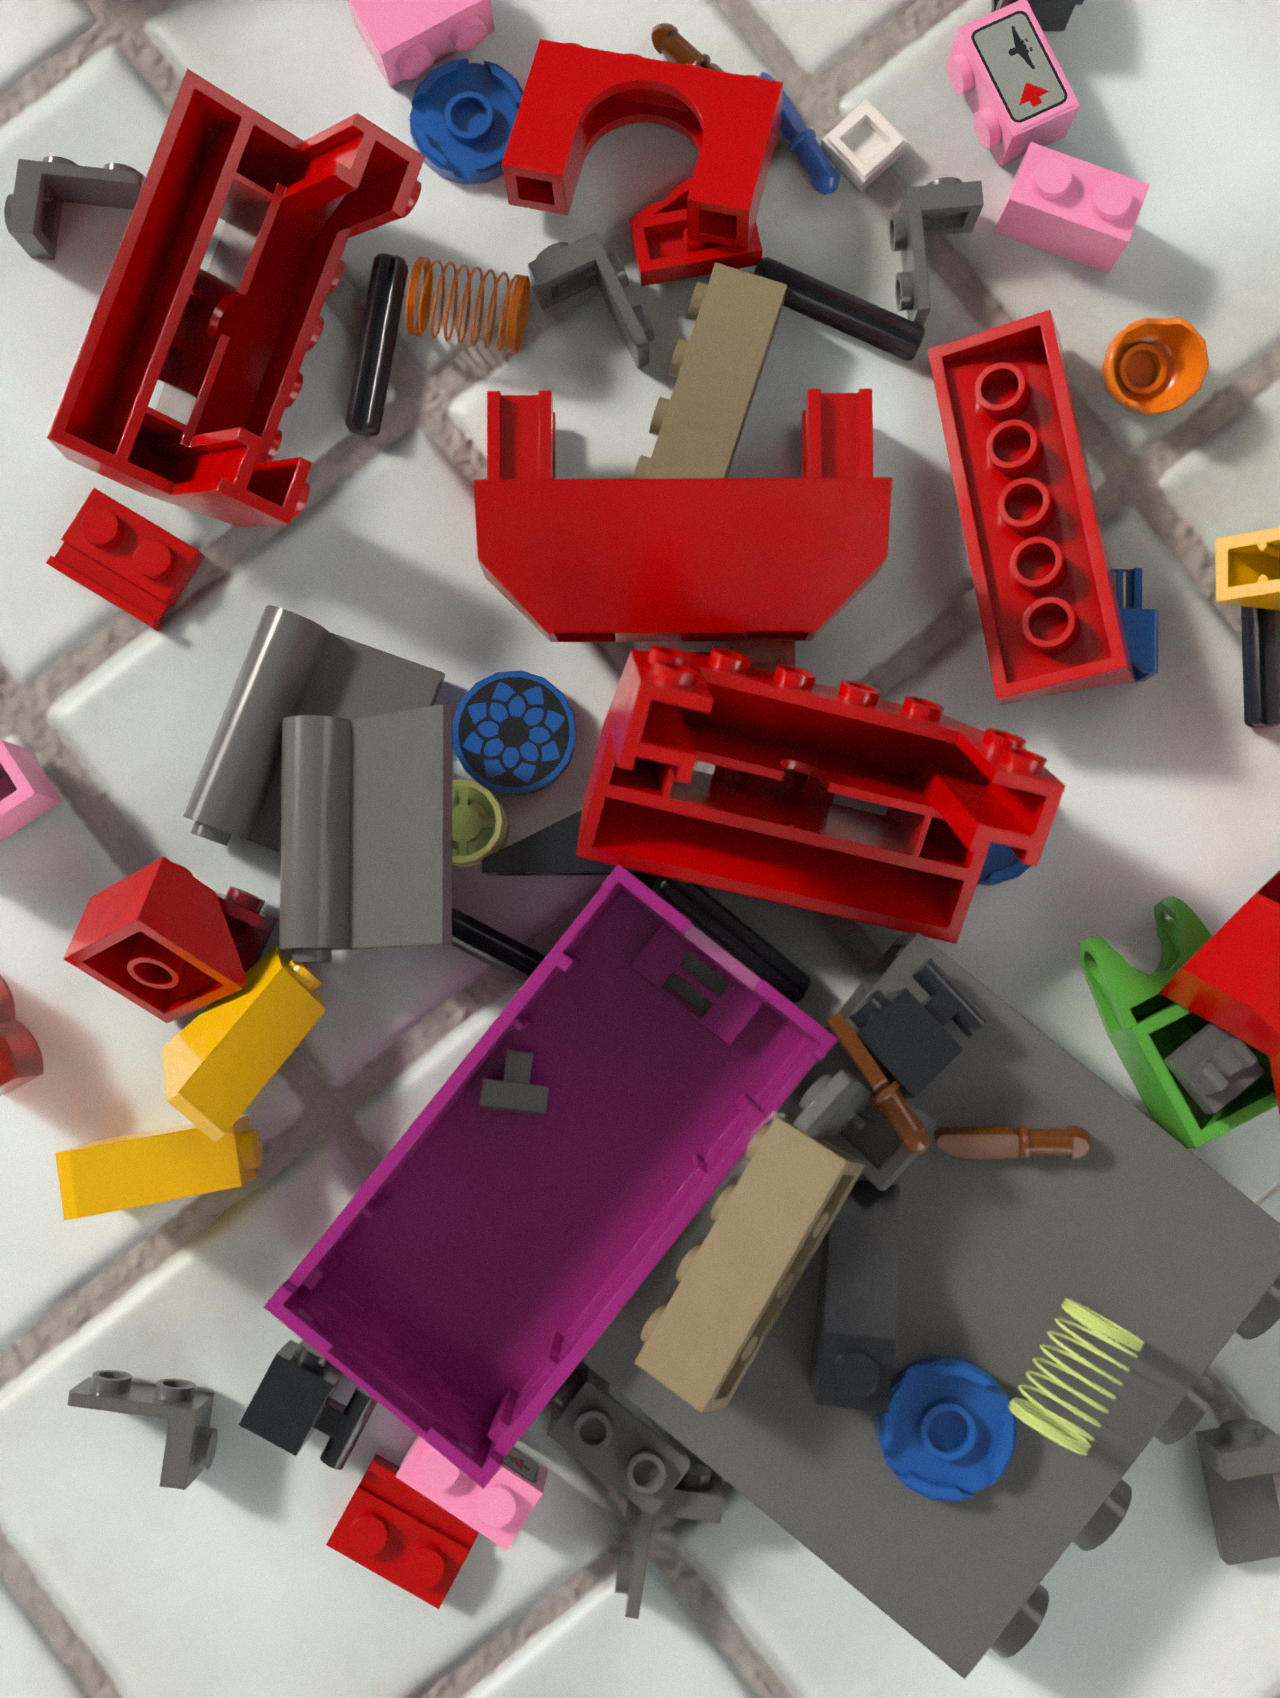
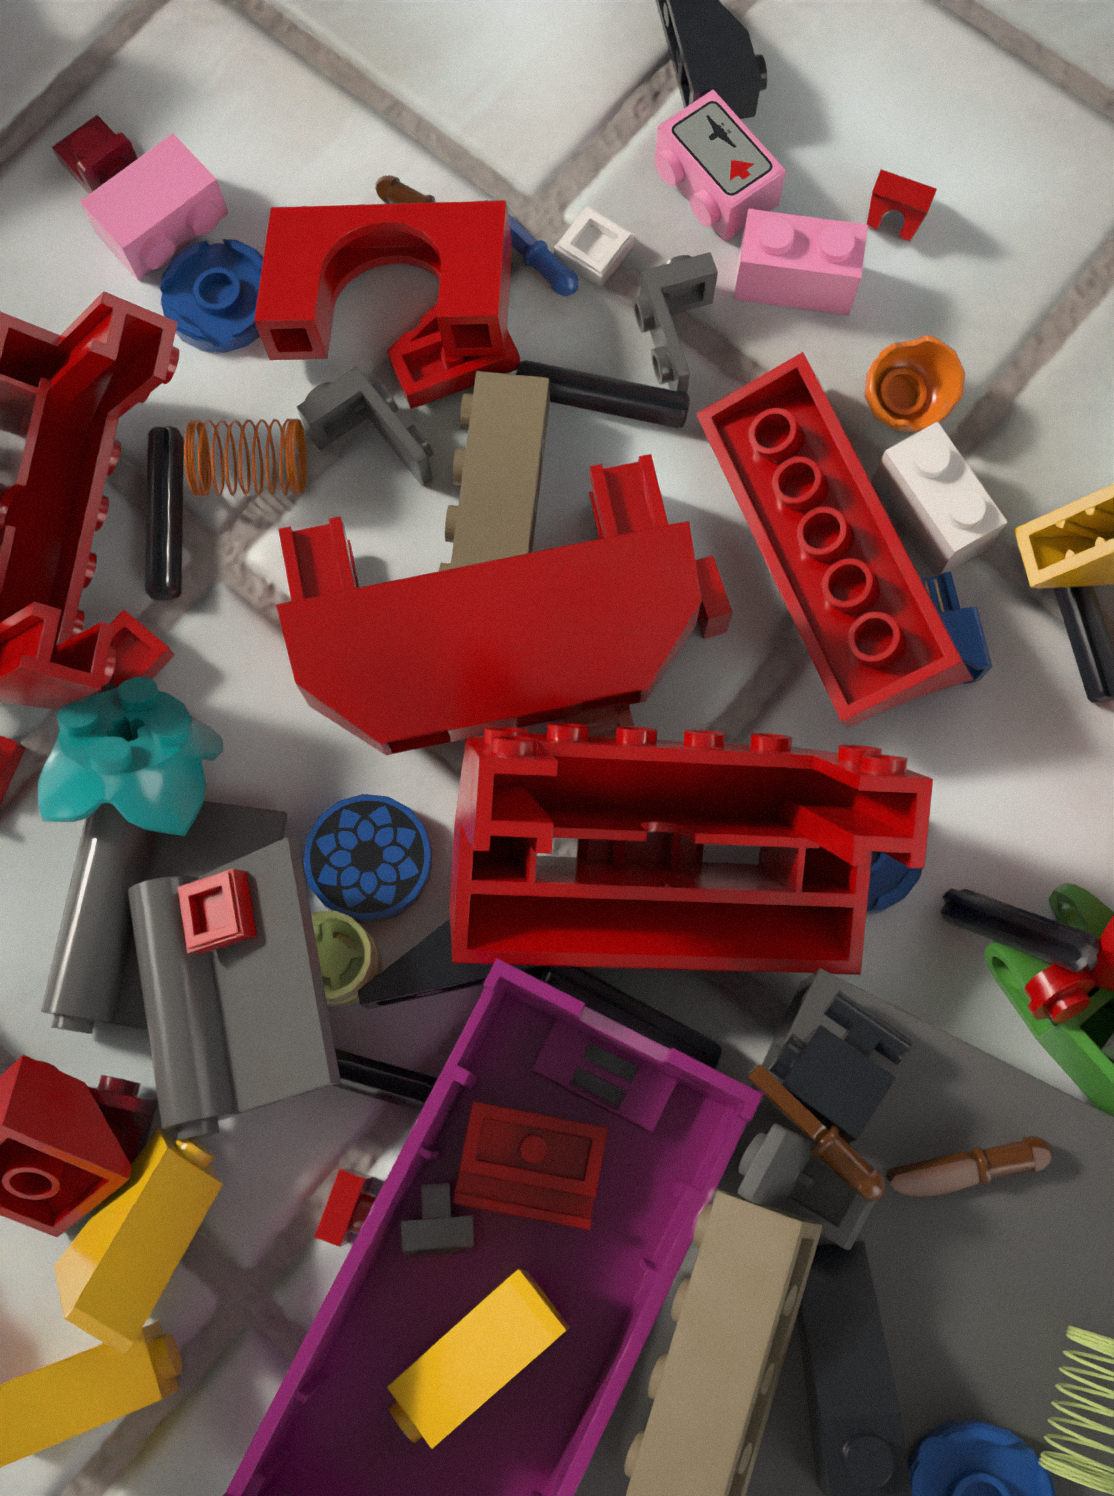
camera: 15 degrees left, 10 degrees down
(309, 588) = (130, 752): none -> teal brick
(329, 484) = (137, 650): none -> red plate
(364, 759) = (217, 911): none -> tile
(436, 1054) = (346, 1207): none -> red plate
(528, 1212) = (475, 1359): none -> yellow slope
(611, 1051) = (530, 1165): none -> red plate
(901, 547) = (715, 607): none -> red plate
(1118, 934) = (1021, 930): none -> black axle
(1138, 1000) = (1058, 993): none -> red plate
(1148, 491) = (938, 499): none -> white brick
(1195, 156) = (900, 195): none -> red tile

